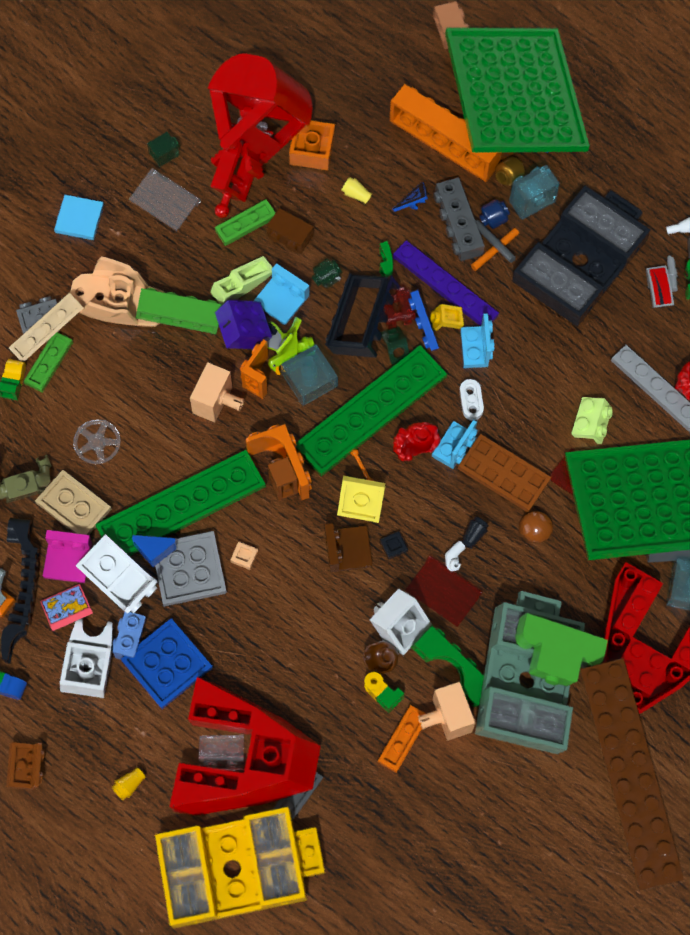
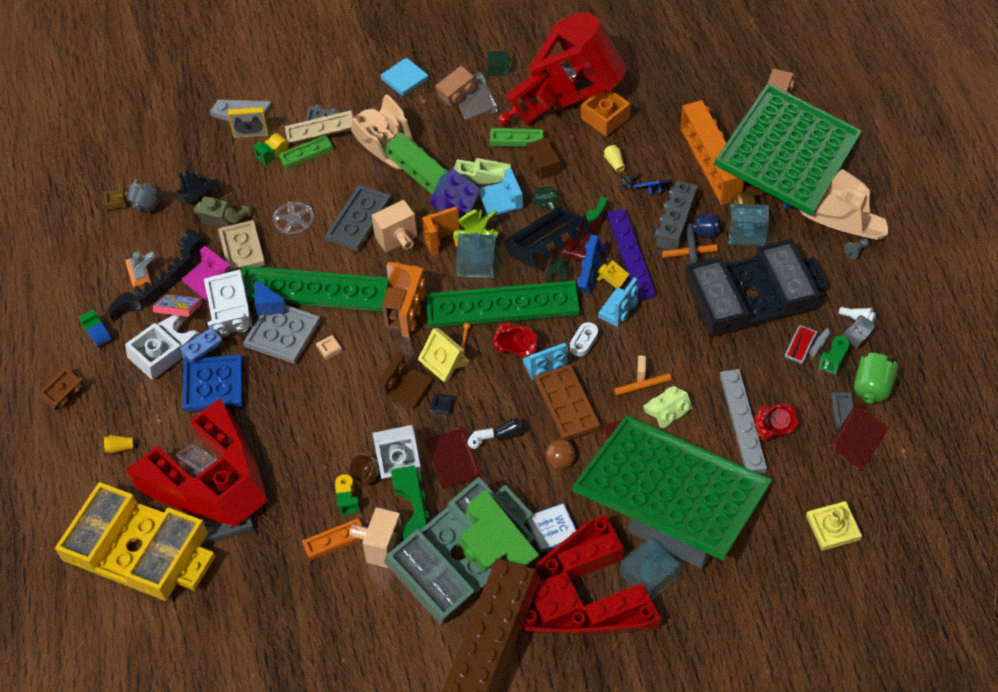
camera: 40 degrees right, 15 degrees down
(144, 200) = (456, 86): none -> nougat brick
(162, 403) = (355, 219): none -> dark grey plate
(385, 210) = (627, 181): none -> pearl dark grey hand
(544, 398) = (641, 368): none -> light nougat tile
(554, 412) = (642, 384): none -> orange bar
(583, 601) = (551, 527): none -> white tile
(607, 124) = (848, 208): none -> light nougat piece
(637, 162) = (853, 249): none -> dark grey piece

